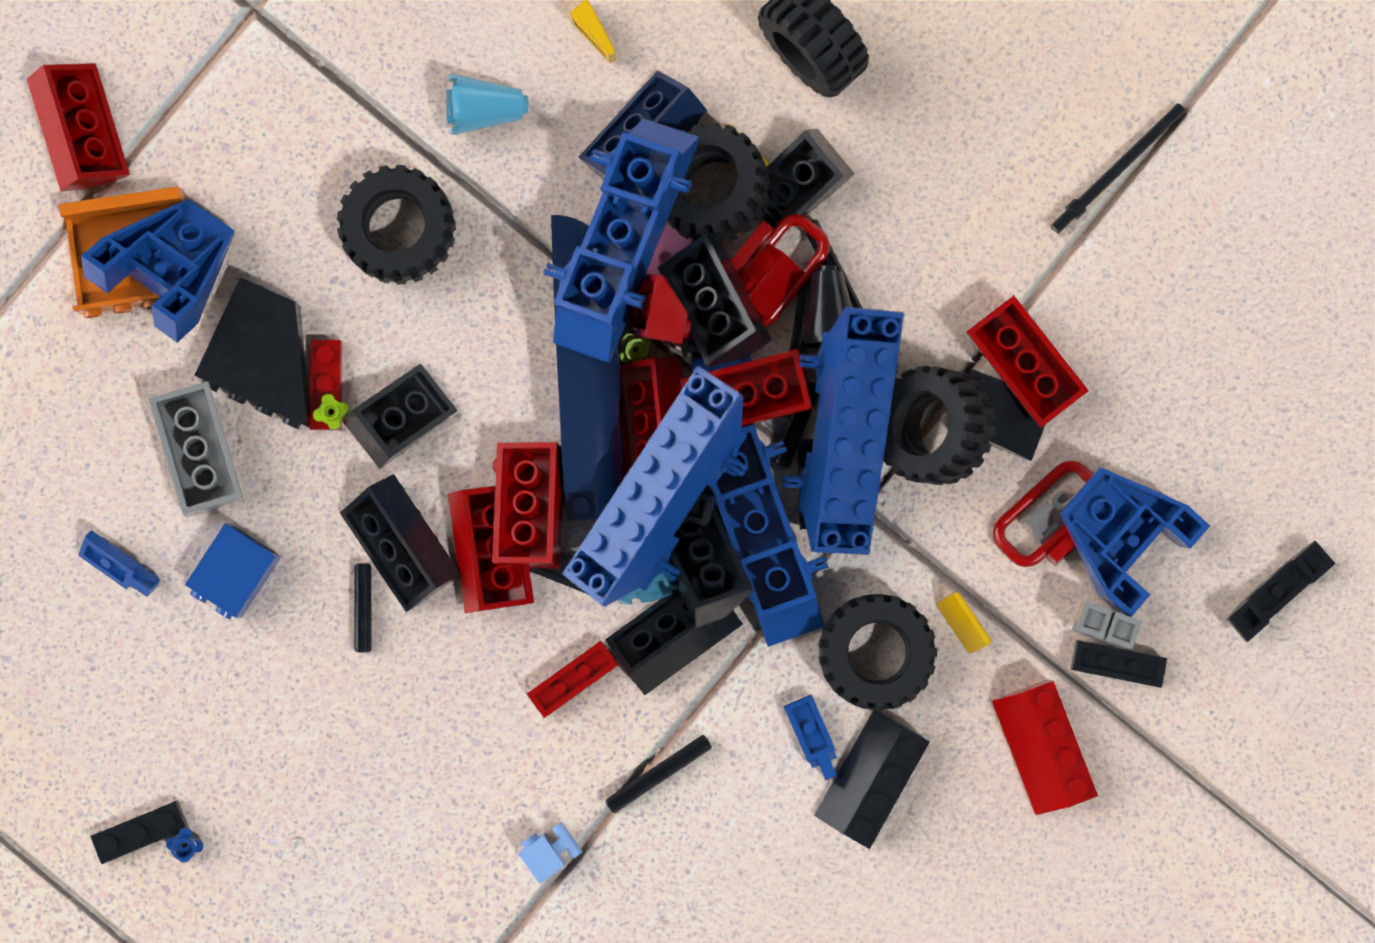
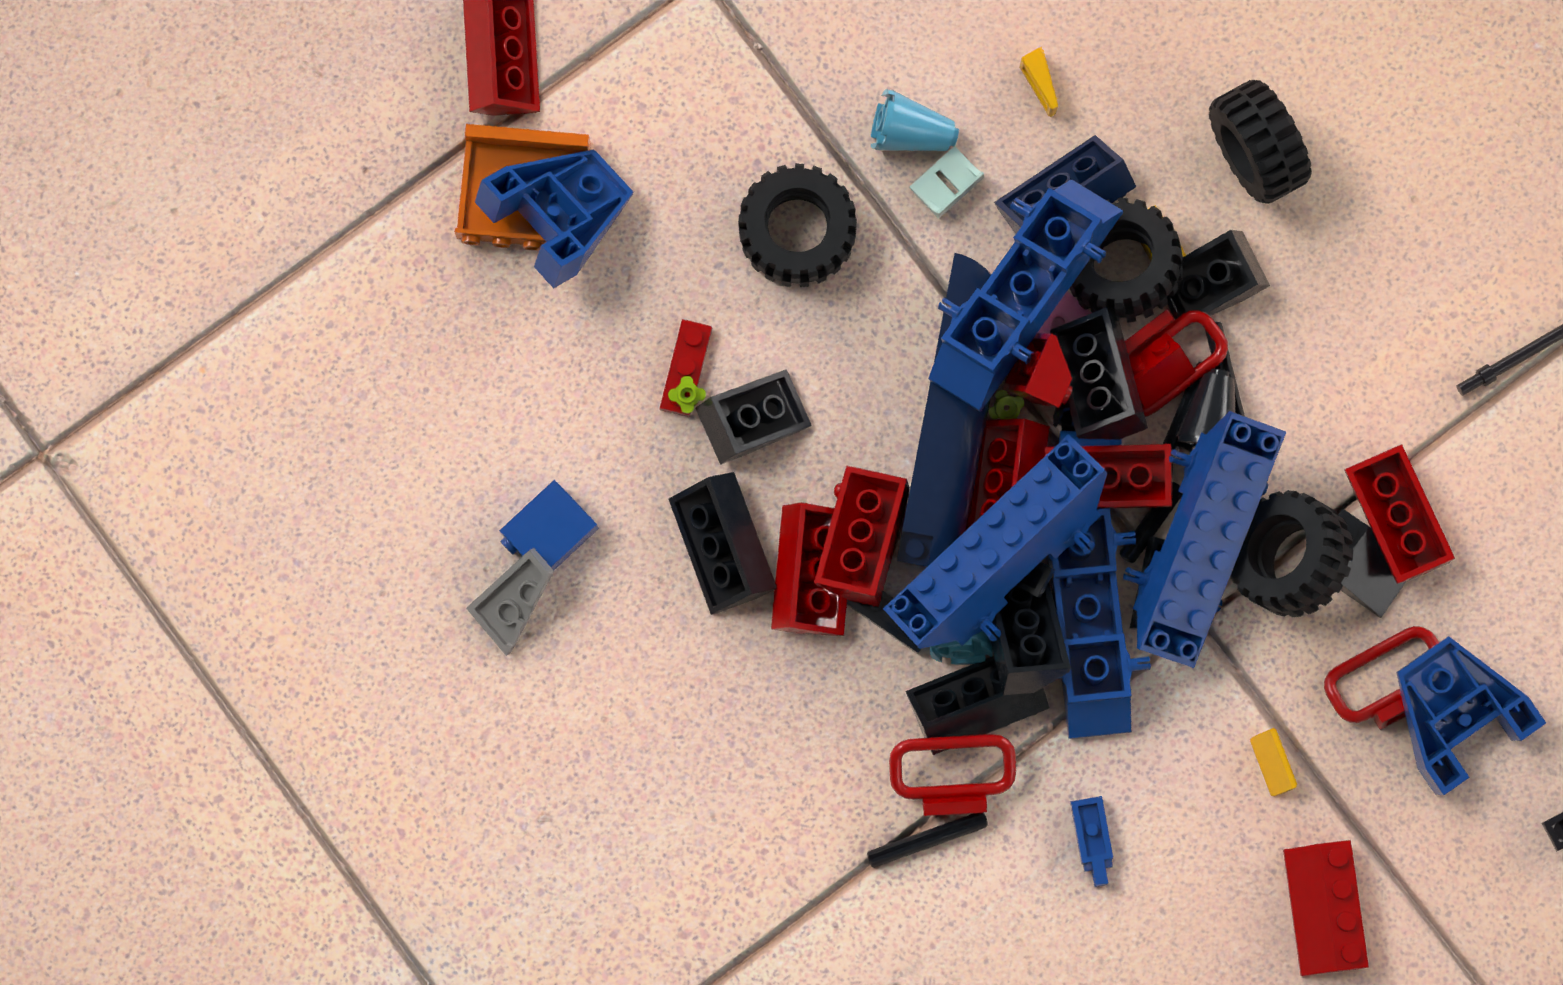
camera: 15 degrees right, 5 degrees down
(117, 565) = (434, 495): blue hinge -> none
(139, 832) = (390, 768): black plate -> none
(183, 853) = (428, 800): blue plate -> none
(195, 449) = (543, 399): light grey slope -> none
(213, 647) = (511, 600): none -> light grey wing
(260, 354) = (628, 321): black slope -> none
(362, 608) = (669, 599): black axle -> none
(538, 137) = (957, 171): none -> light aqua piece
(543, 856) = (792, 892): light blue brick -> none
(572, 679) = (863, 722): red plate -> none
(673, 731) = (957, 797): none -> red bar
(871, 779) = (1142, 896): black slope -> none
(918, 645) = (1189, 726): black tyre -> none
(1047, 518) = (1382, 678): light grey plate -> none
(1106, 625) = (1417, 800): light grey hips -> none
(1118, 663) = (1421, 843): black plate -> none

